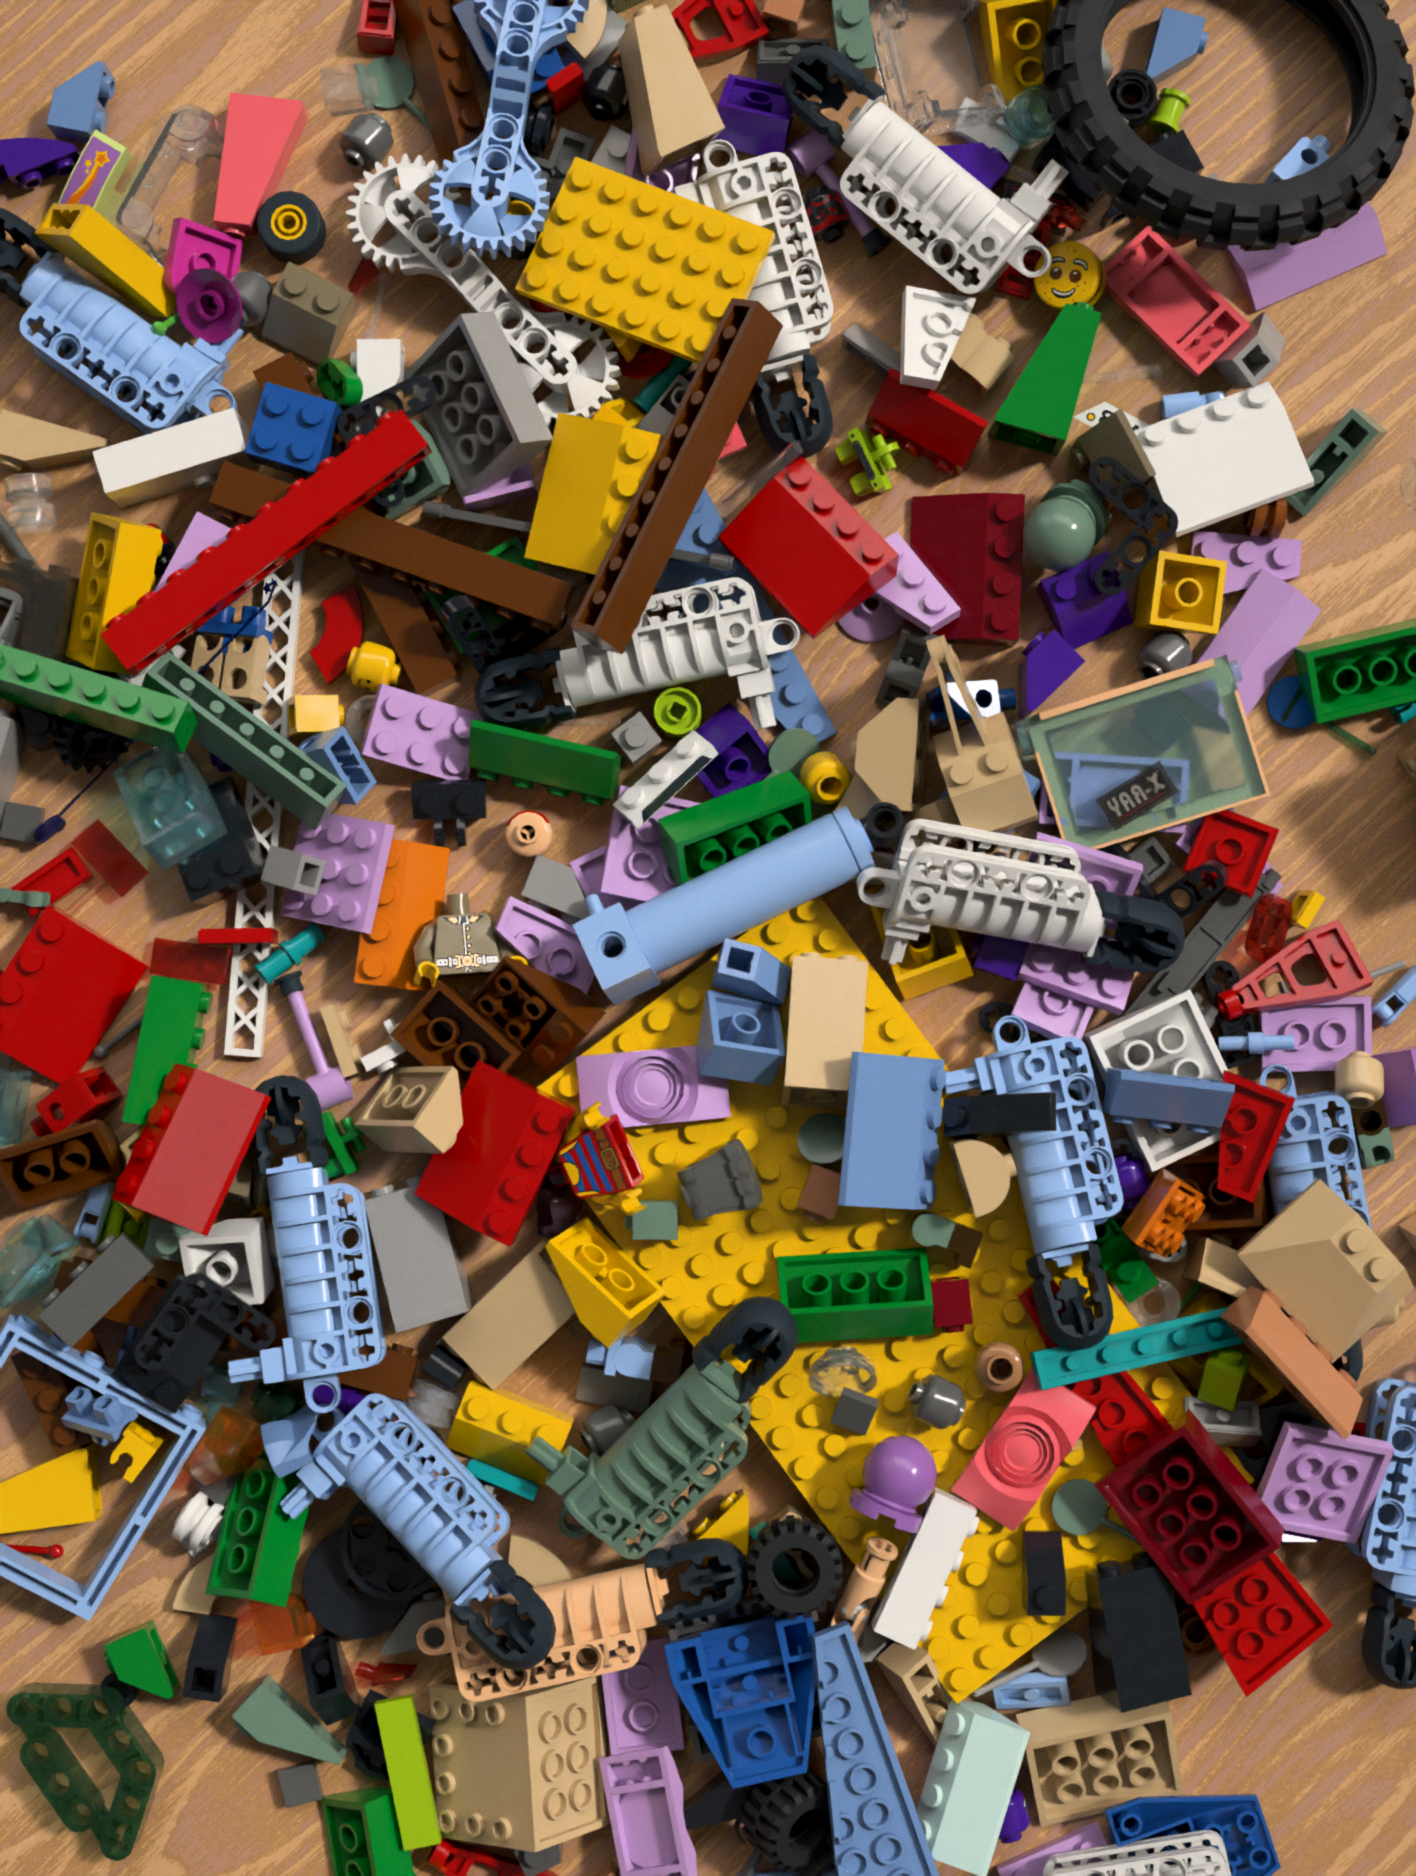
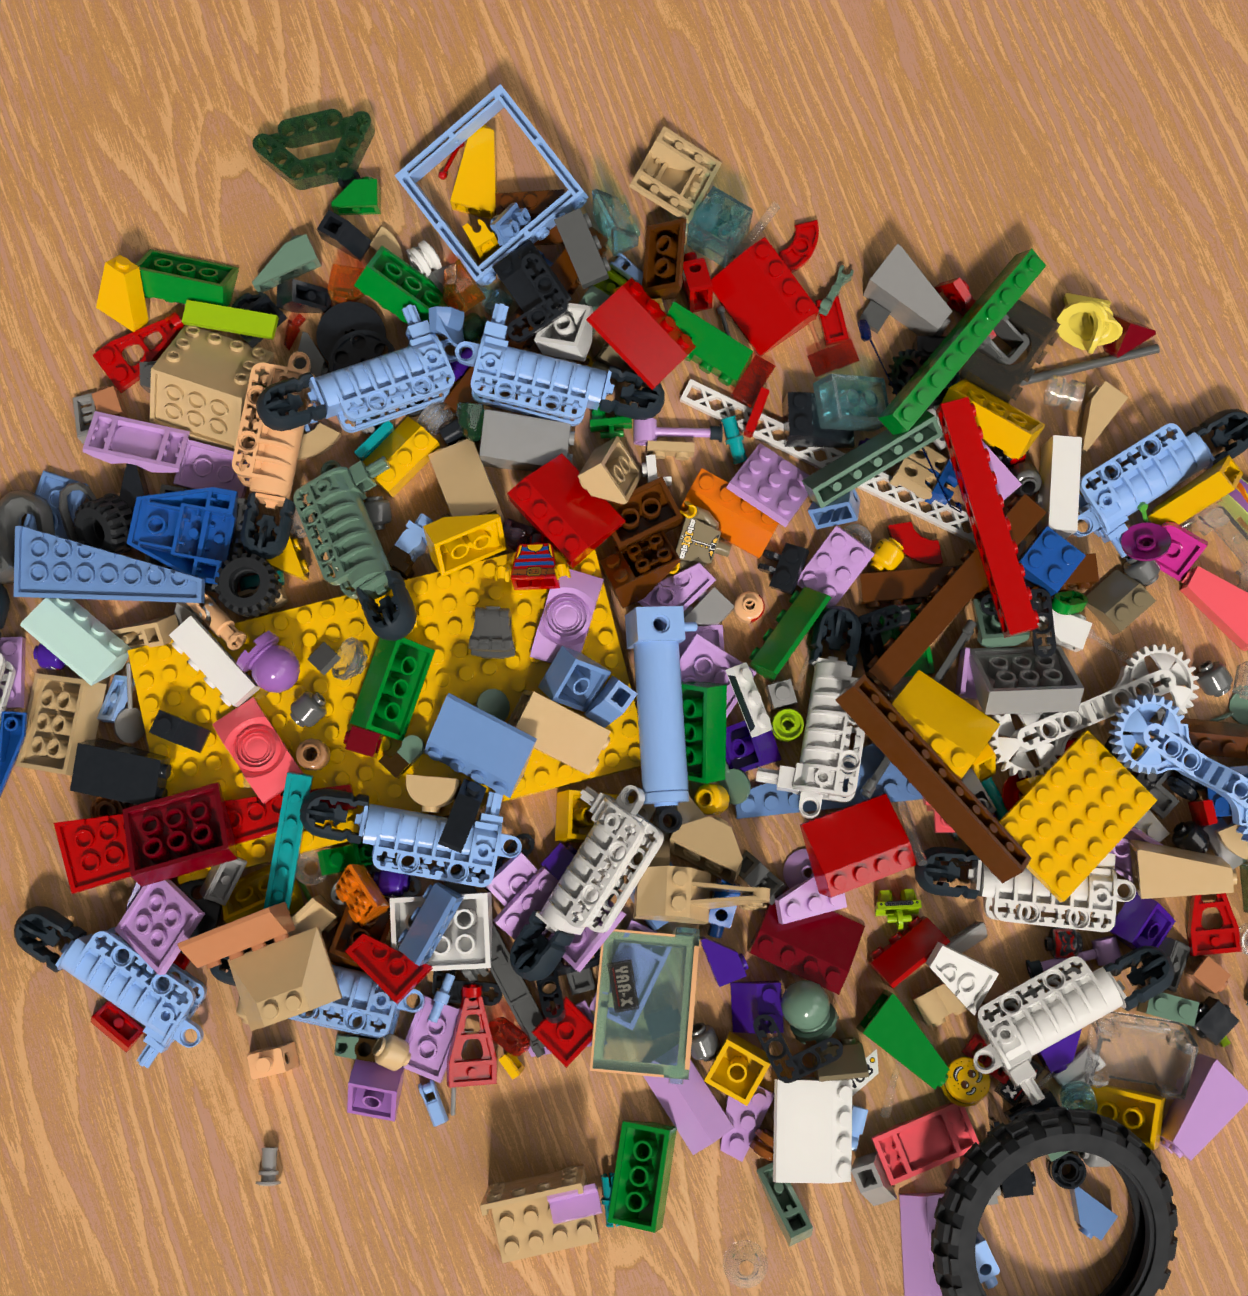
camera: 110 degrees right, 5 degrees down
(179, 508) = (1028, 477): none -> dark grey head
(293, 870) = (782, 458): light grey brick -> none
(294, 240) = (1168, 617): black wheel -> none
(300, 1783) = (251, 259): dark grey tile -> none
(313, 714) = (871, 509): yellow brick -> none
(363, 275) = (1130, 644): clear red bar -> none
(417, 1348) = (470, 419): none -> clear green rock
(617, 1390) = (398, 525): light grey slope -> none
(656, 1221) = (485, 586): sand green brick -> none
(820, 1193) = (461, 688): nougat brick -> none
(1065, 217) = (1005, 1095): clear red bar -> none
(1082, 1509) = (208, 770): sand green piece -> none
(1169, 111) = (1048, 1192): lime bush -> none
(1224, 1377) = (247, 890): lime brick -> none
(1290, 710) = (639, 1108): blue piece -> none

